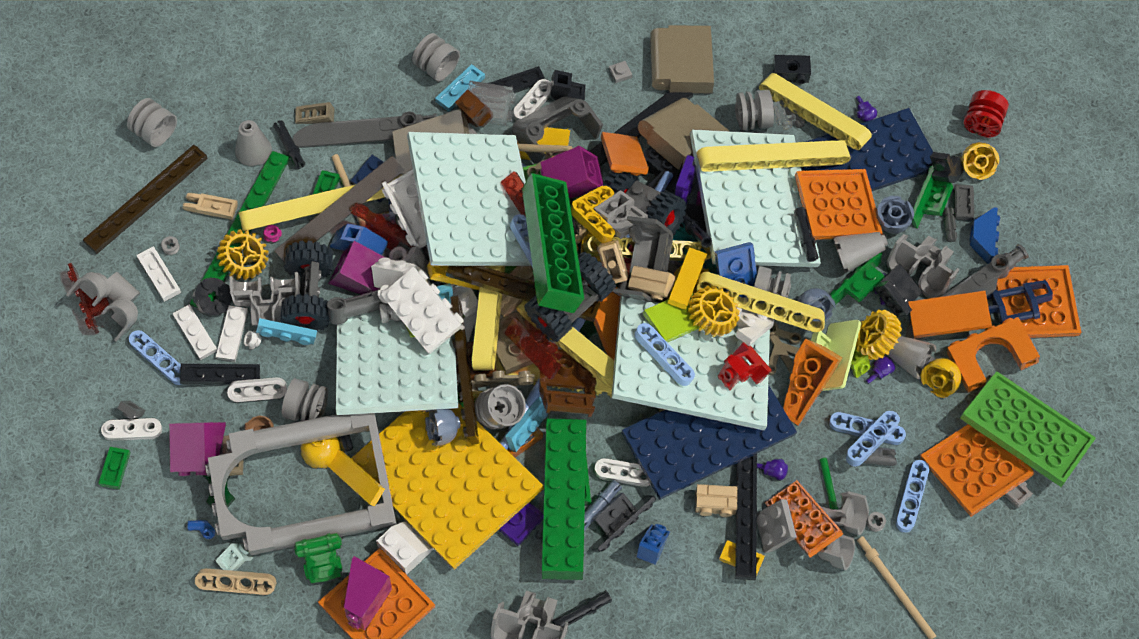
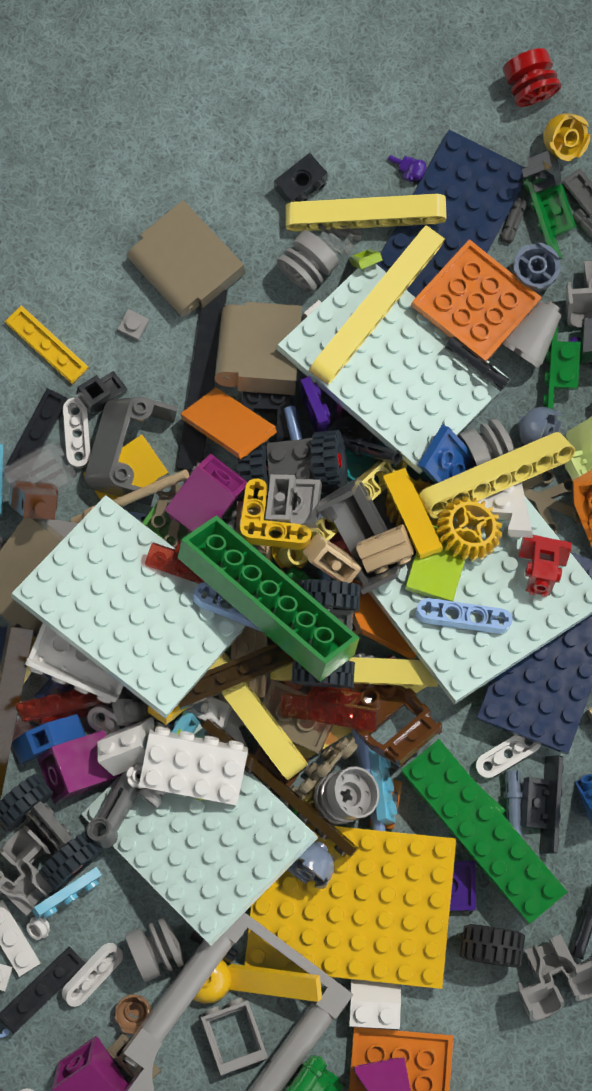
camera: 40 degrees left, 15 degrees up
(297, 511) = (243, 1061): none -> light grey window
(507, 568) = (492, 945): none -> black tyre
(560, 43) = (46, 345): none -> yellow tile
(792, 132) = (365, 258): none -> lime tile
(905, 185) = (514, 220): none -> dark grey axle

